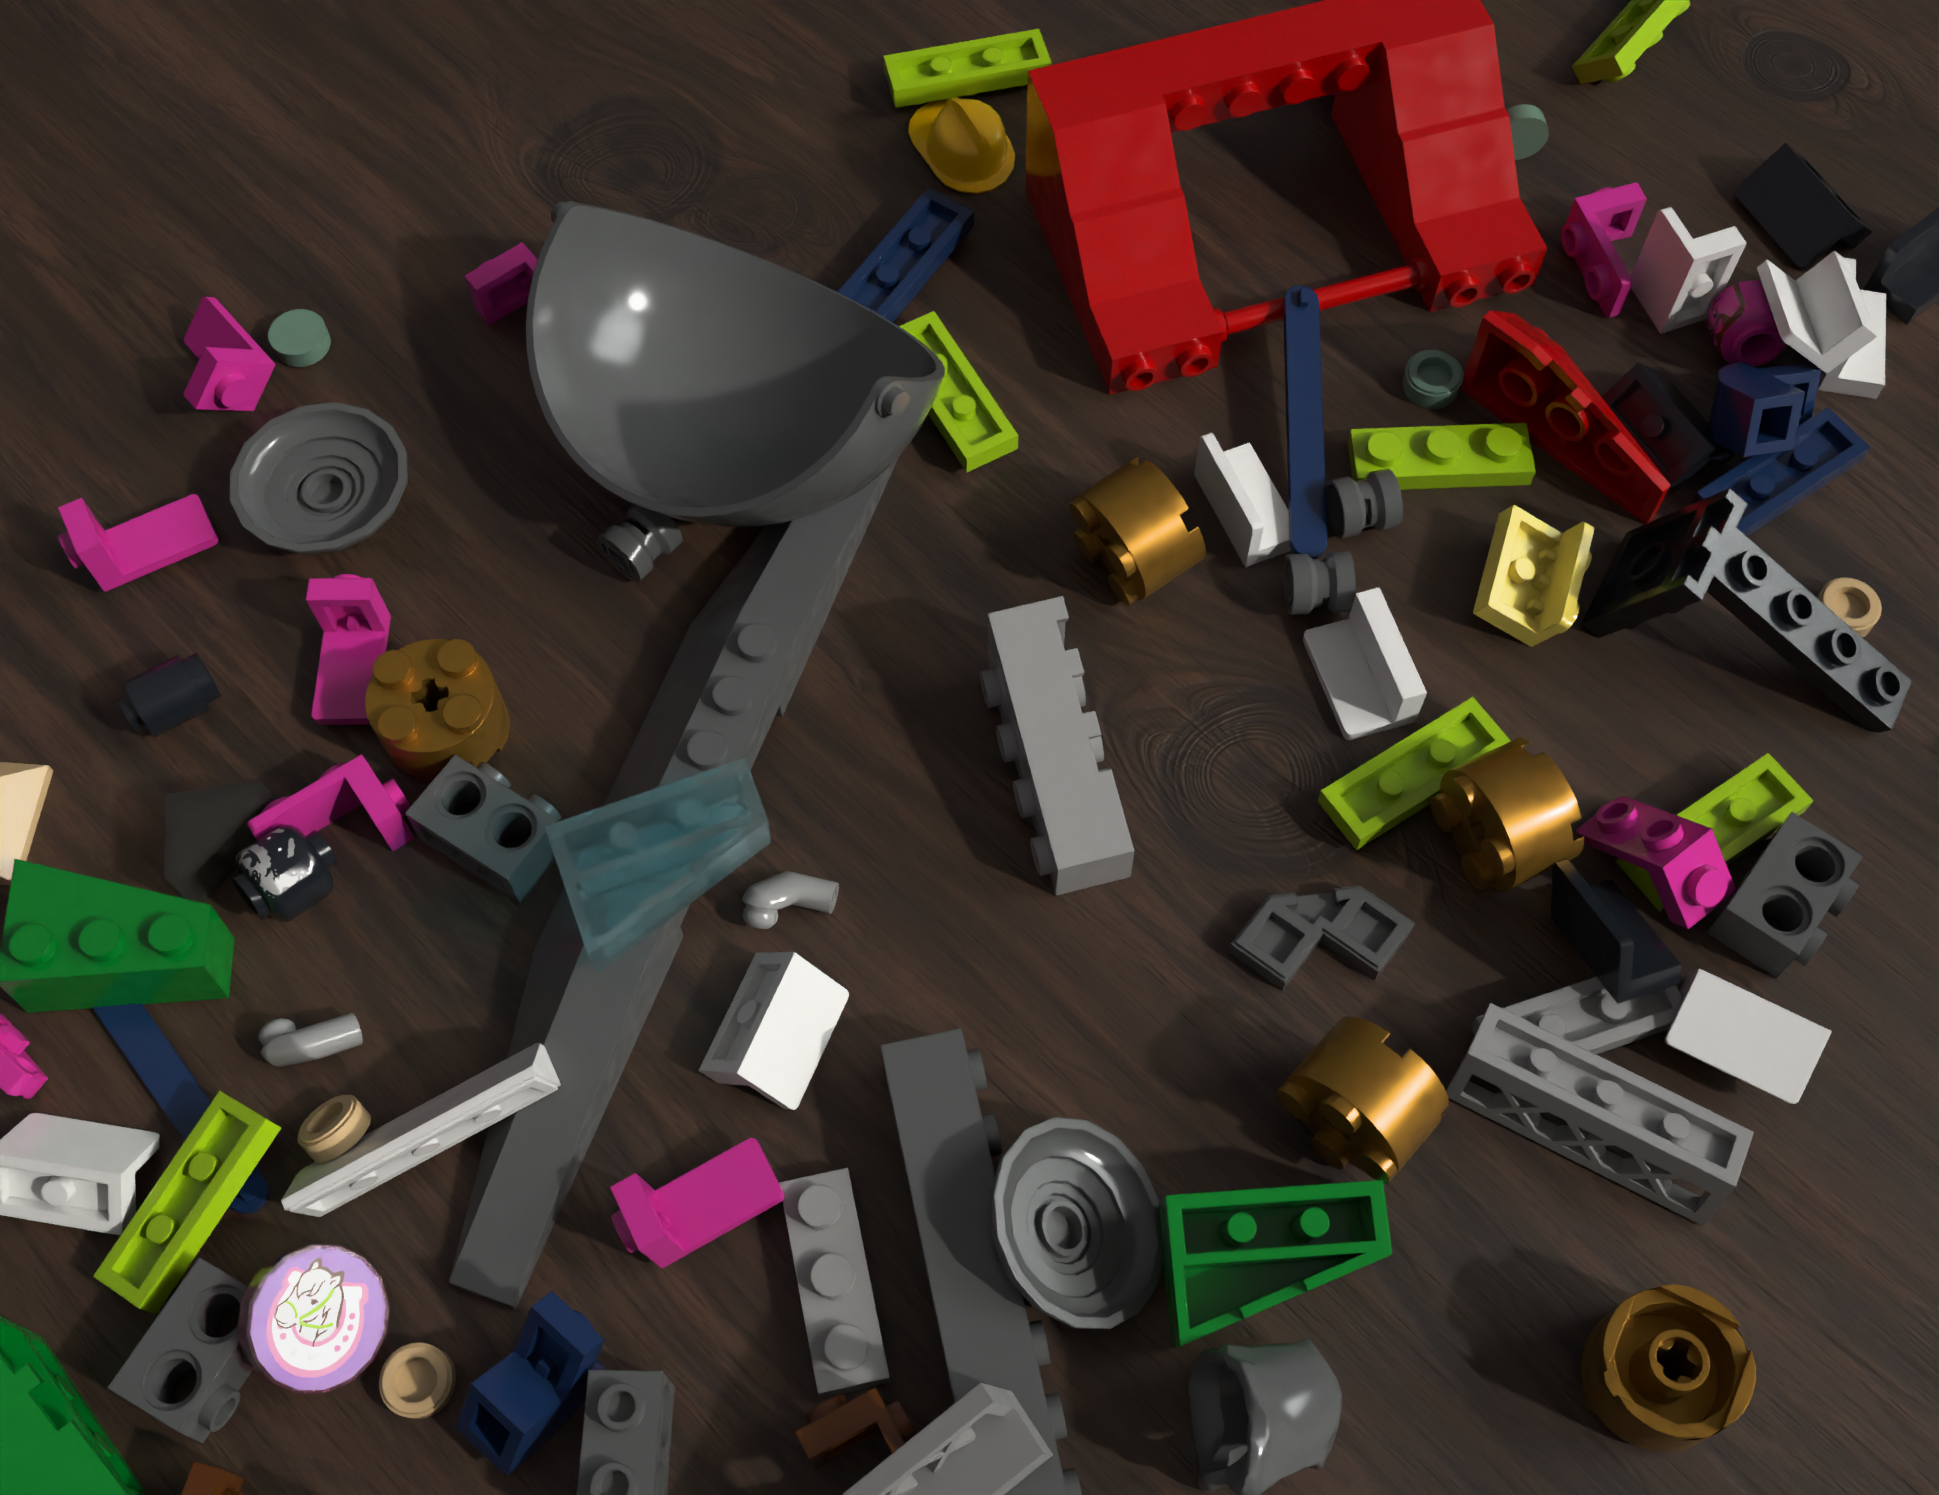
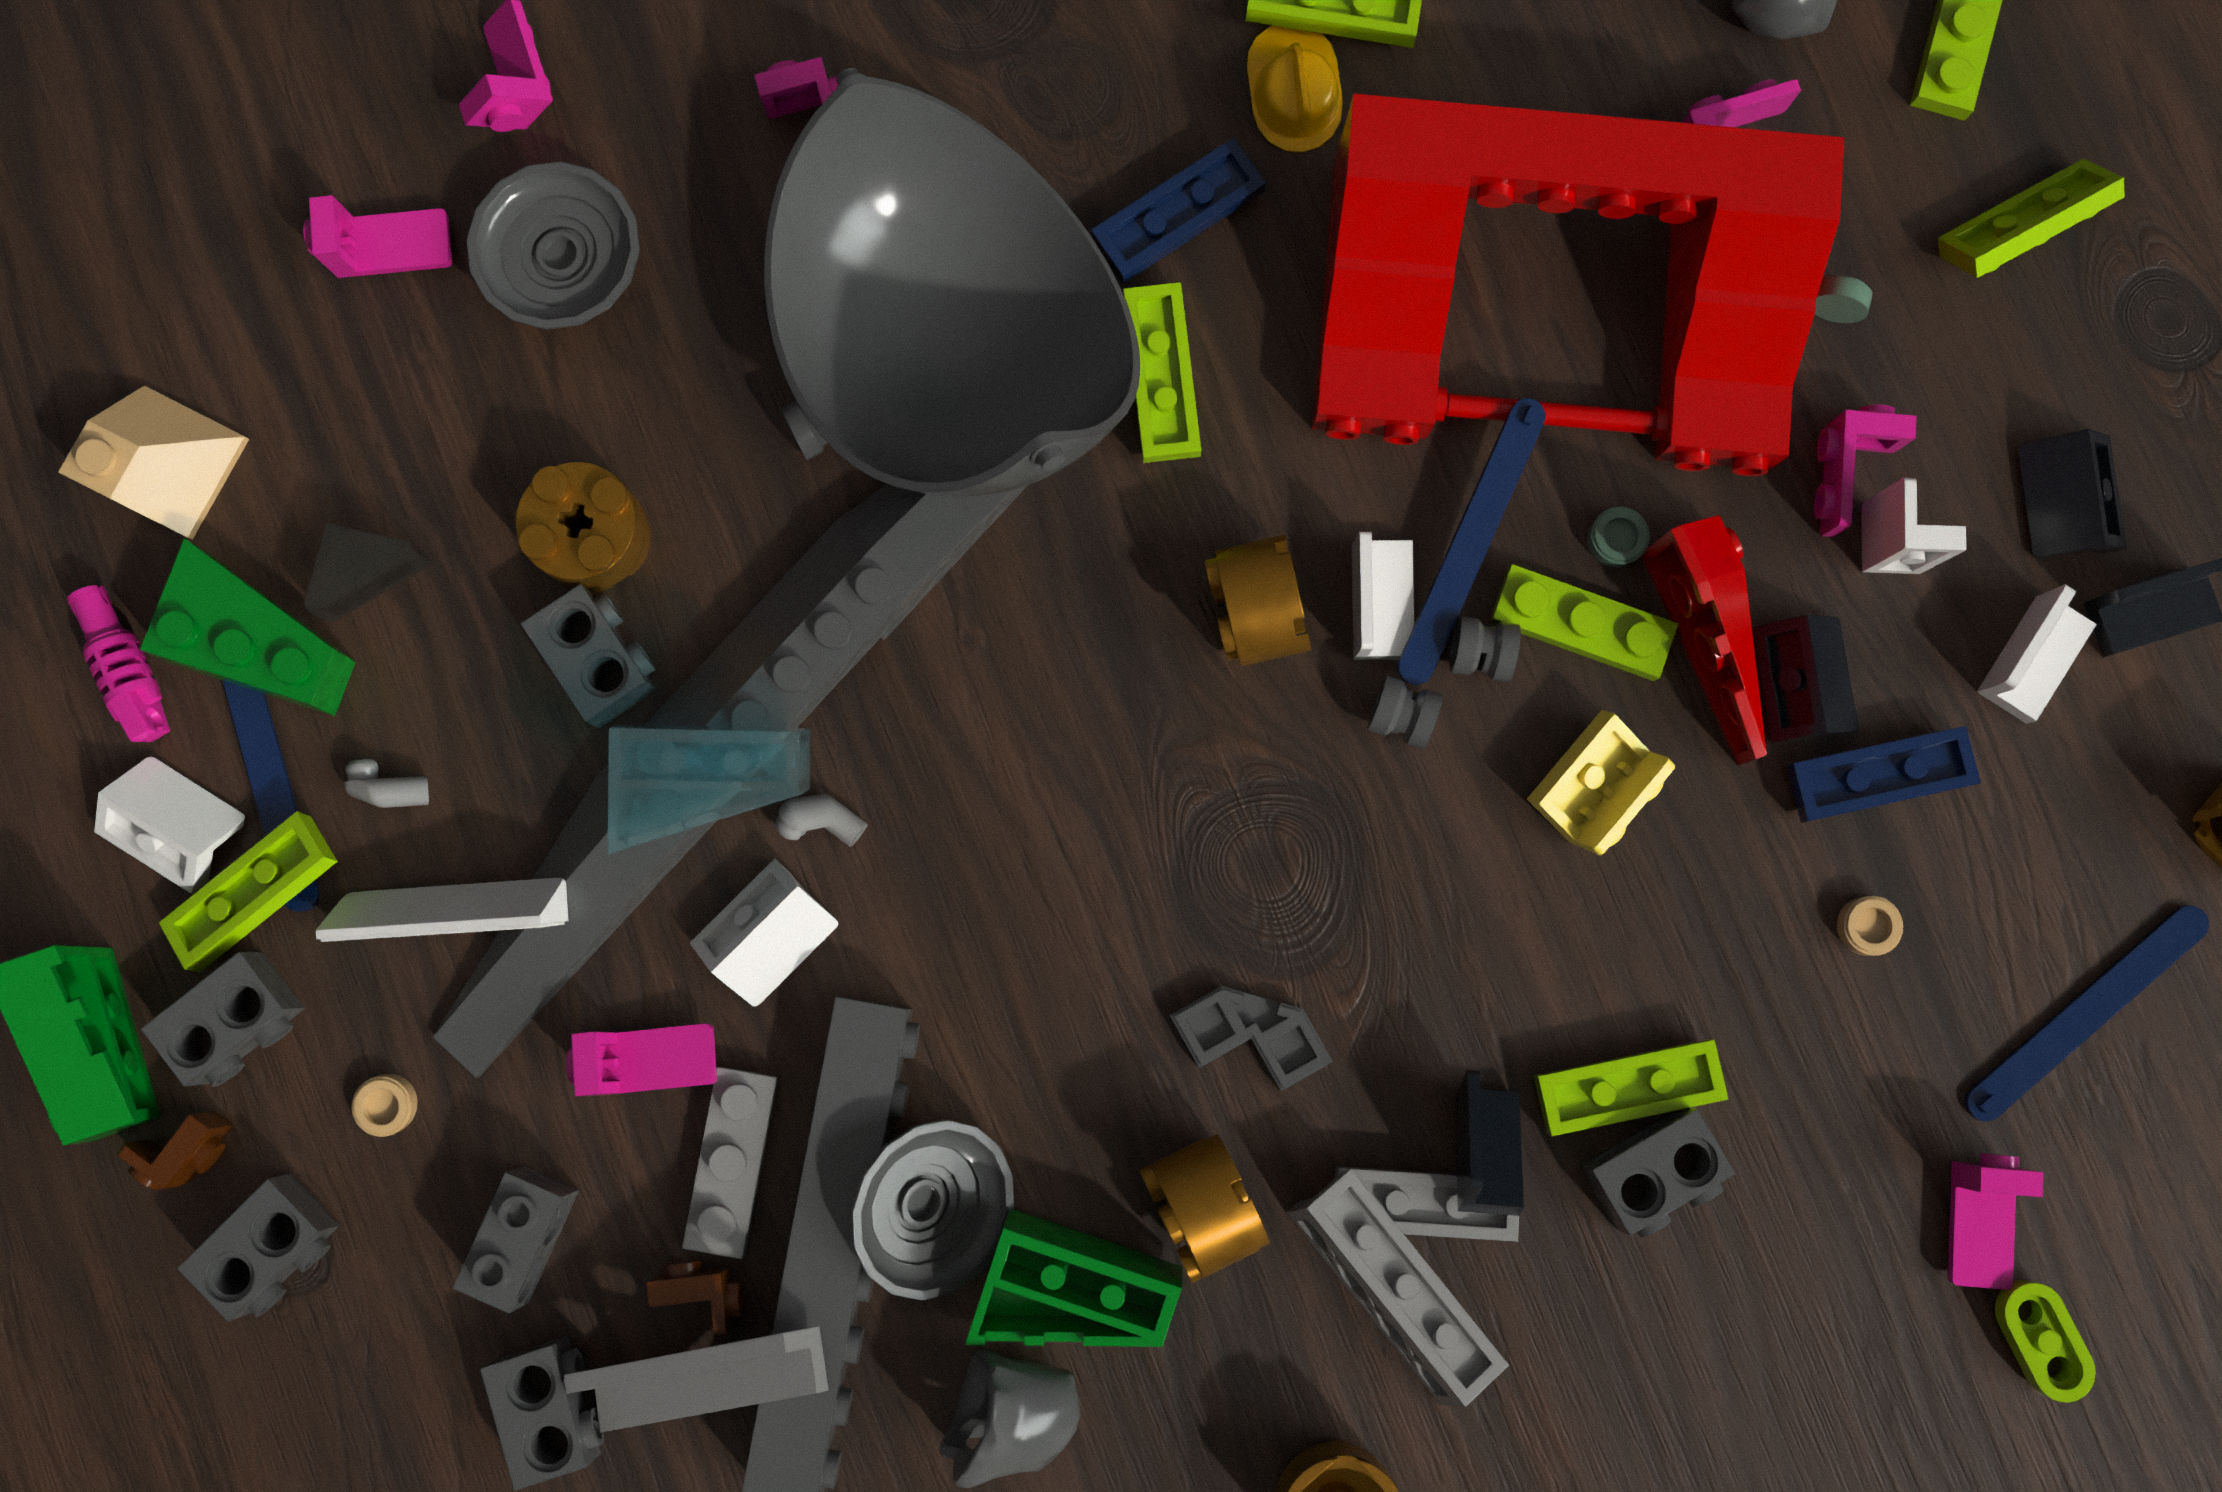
camera: 20 degrees right, 20 degrees up
(168, 694) = (362, 413): black brick -> none
(284, 873) = (407, 630): black head -> none
(299, 338) = (588, 68): sand green tile -> none
(313, 1318) = (314, 1034): tile -> none
(333, 1128) = (380, 875): tan tile -> none
(335, 795) = (507, 592): dark pink bracket -> none
(353, 638) = (530, 431): dark pink bracket -> none
(533, 1388) = (463, 1157): dark blue brick -> none
(1054, 748) = (1096, 784): light grey wedge -> none
(1366, 669) = (1405, 809): white panel -> none
(1408, 773) = (1401, 927): lime plate -> none
(1508, 815) = (1452, 1012): pearl gold brick -> none
(1674, 850) = (1568, 1091): dark pink bracket -> none
(1703, 551) = (1734, 840): black bracket -> none
(1744, 325) = (1944, 607): dark pink head -> none
(1746, 1036) = (1554, 1276): white panel -> none
(1762, 407) = (1899, 705): dark blue brick -> none
(1820, 311) = (2004, 634): white panel -> none

